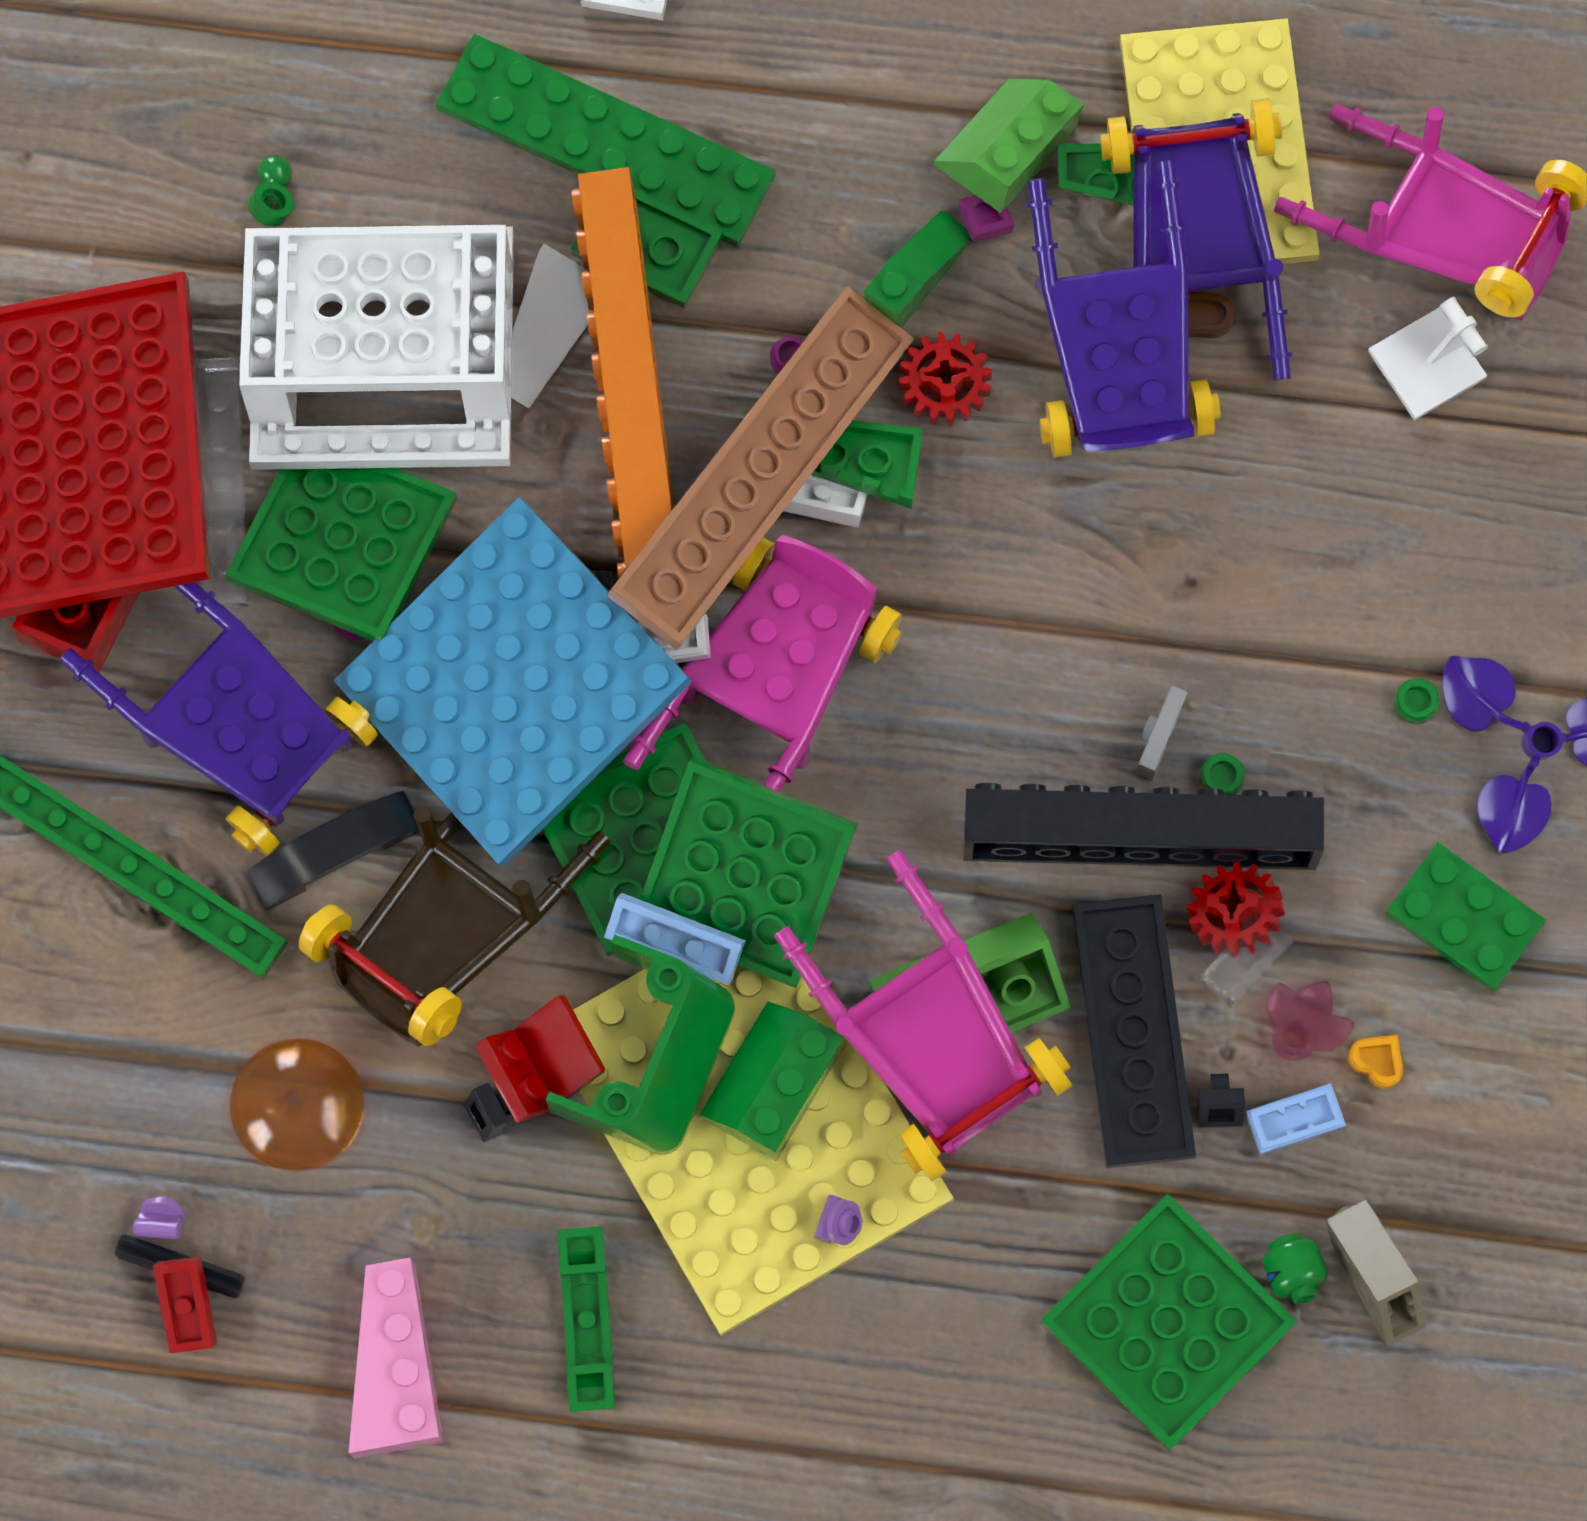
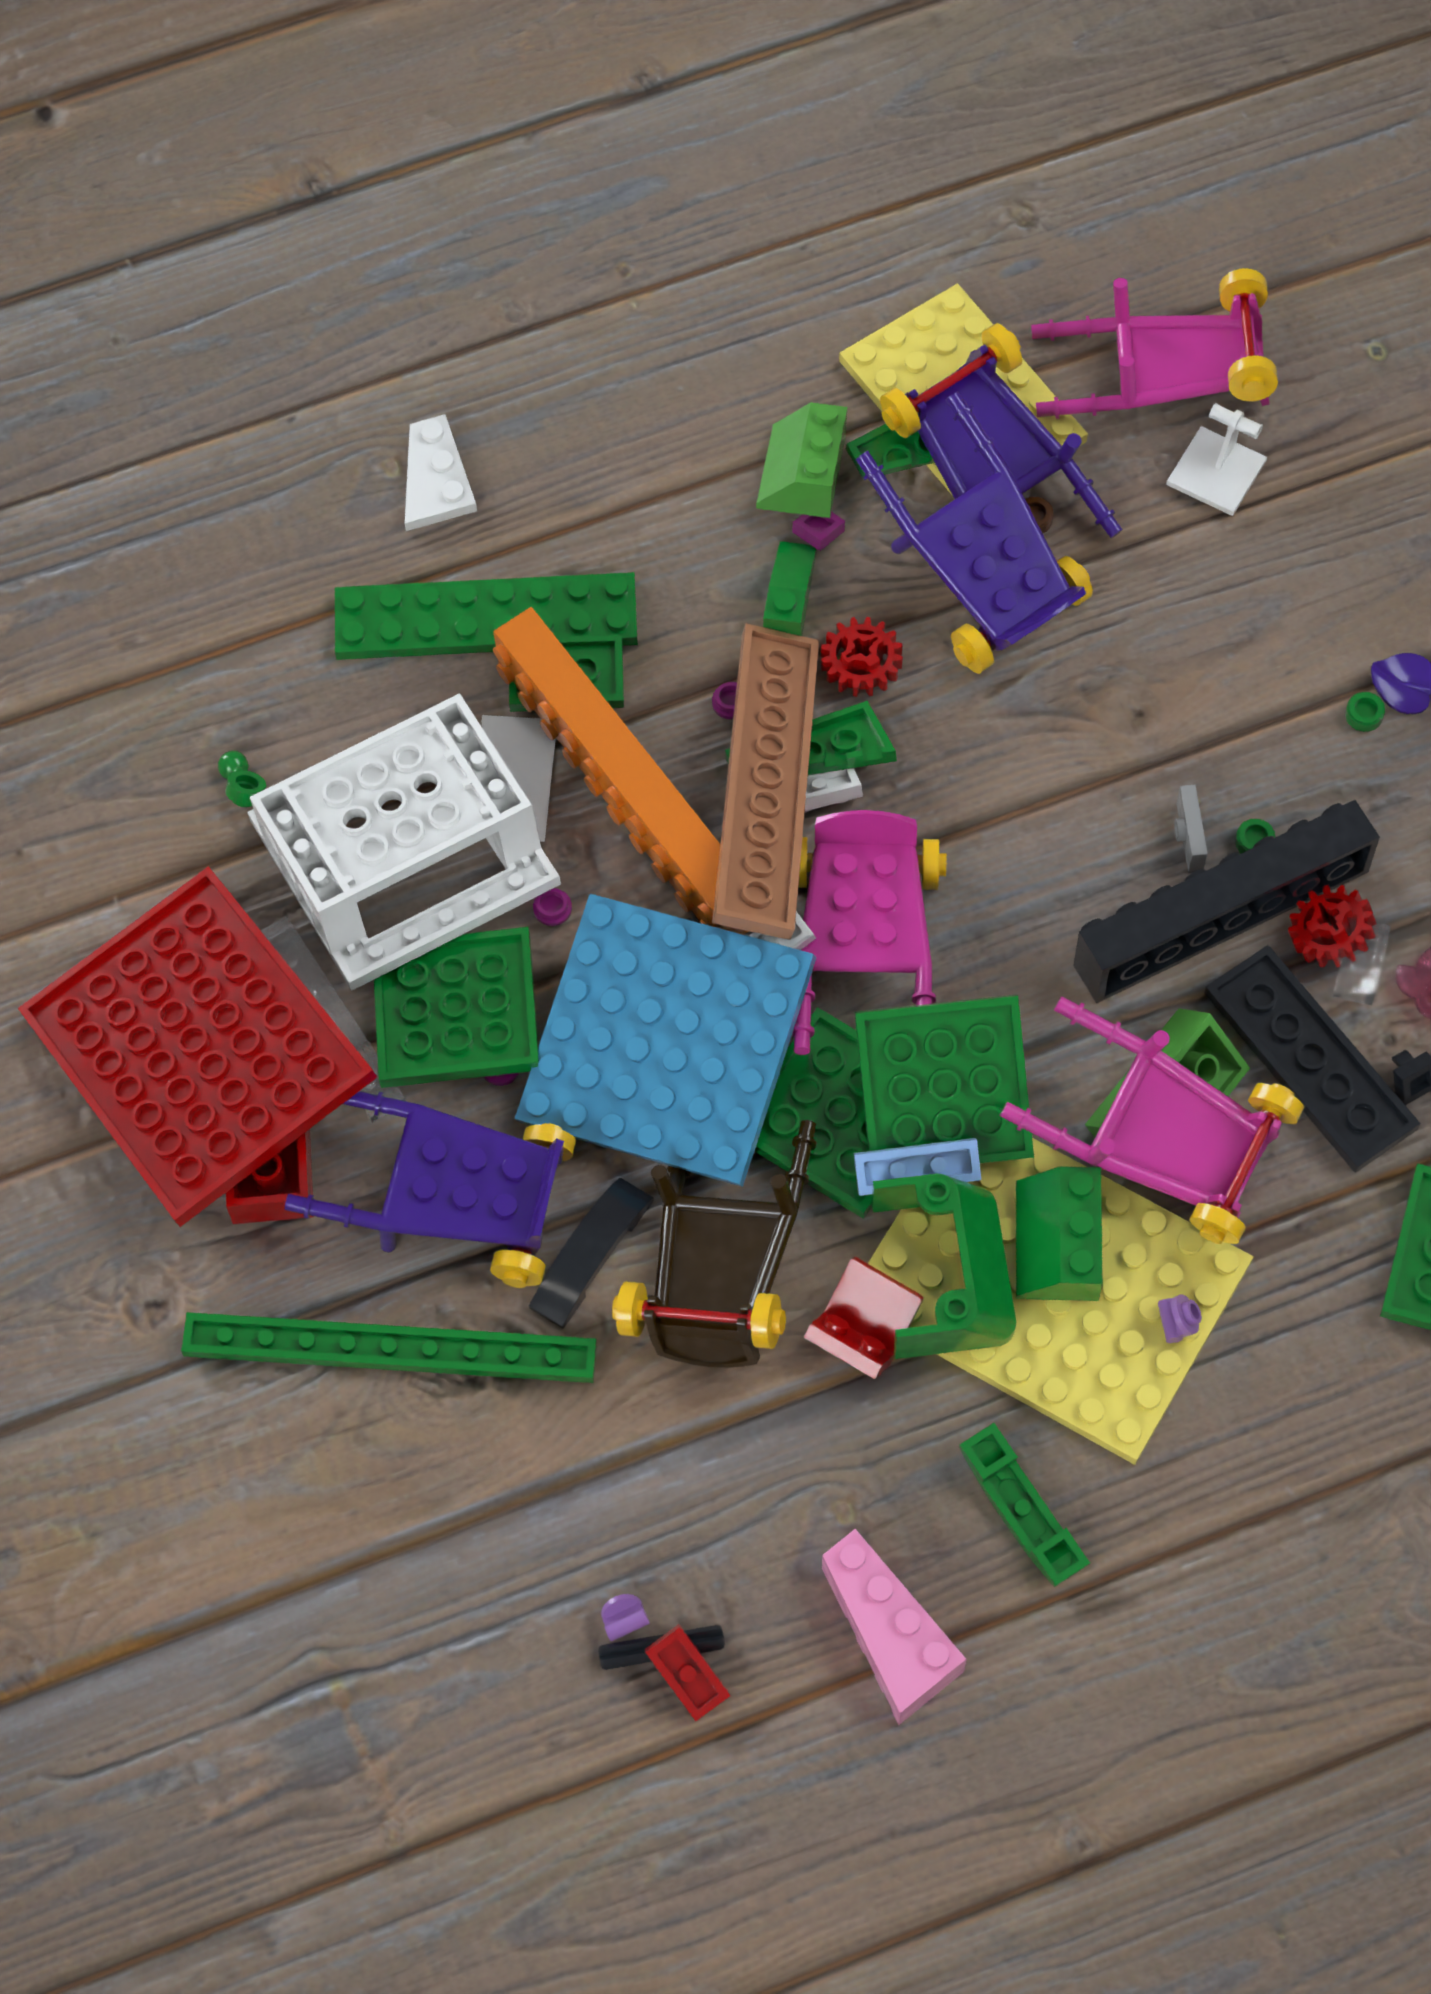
camera: 30 degrees left, 10 degrees down
(301, 1134) = (686, 1492): clear orange dish -> none
(487, 1111) = (842, 1386): black tile -> none
(495, 483) = (552, 907): none -> magenta plate

